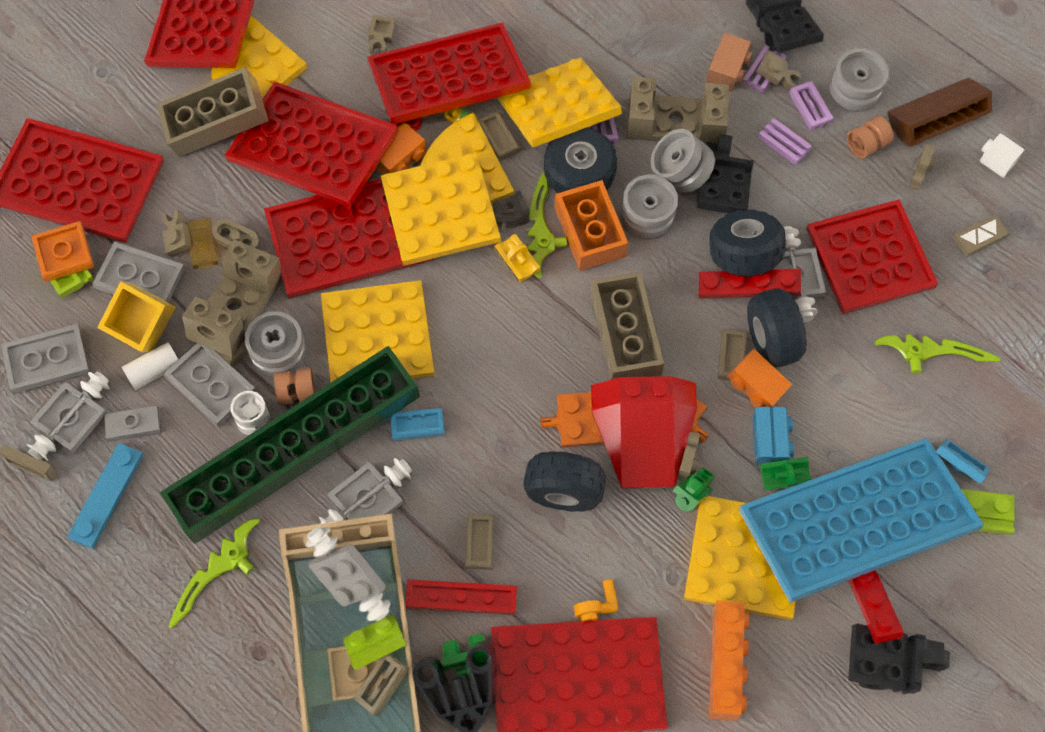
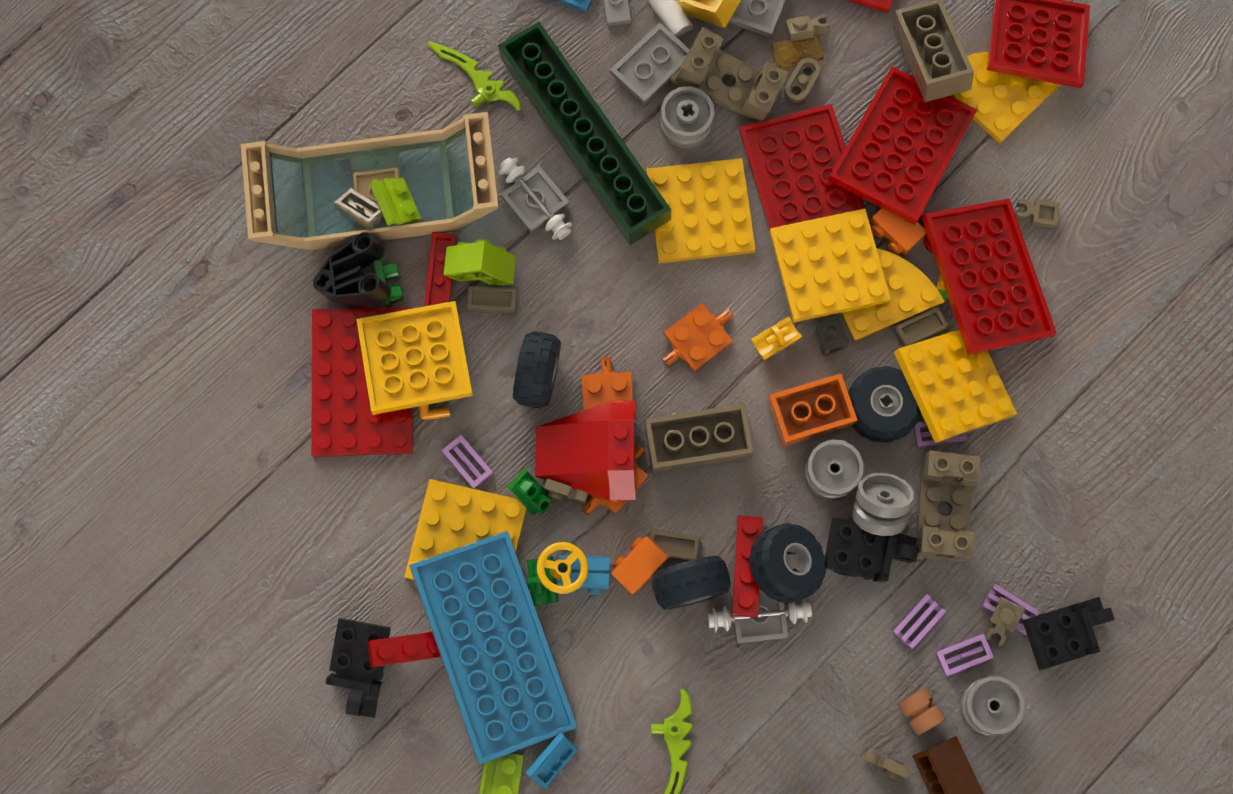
camera: 90 degrees right, 10 degrees up
(249, 411) = (618, 97): white wheel -> none
(303, 383) = (644, 140): nougat wheel -> none
(347, 574) = (446, 170): light grey plate -> none
(417, 424) = (606, 245): dark azure plate -> none
(444, 545) = (480, 262): none -> lime brick
(515, 334) = (697, 337): none -> orange plate
(544, 240) = (800, 369): lime piece -> none
(556, 612) = (414, 357): none -> yellow plate
(679, 544) = (480, 478): none -> lavender tile
(727, 661) = (366, 510): orange brick -> none
(729, 61) = (1014, 568): nougat brick -> none
(774, 457) = (543, 563): none -> yellow piece
(871, 256) = (780, 697): red plate -> none

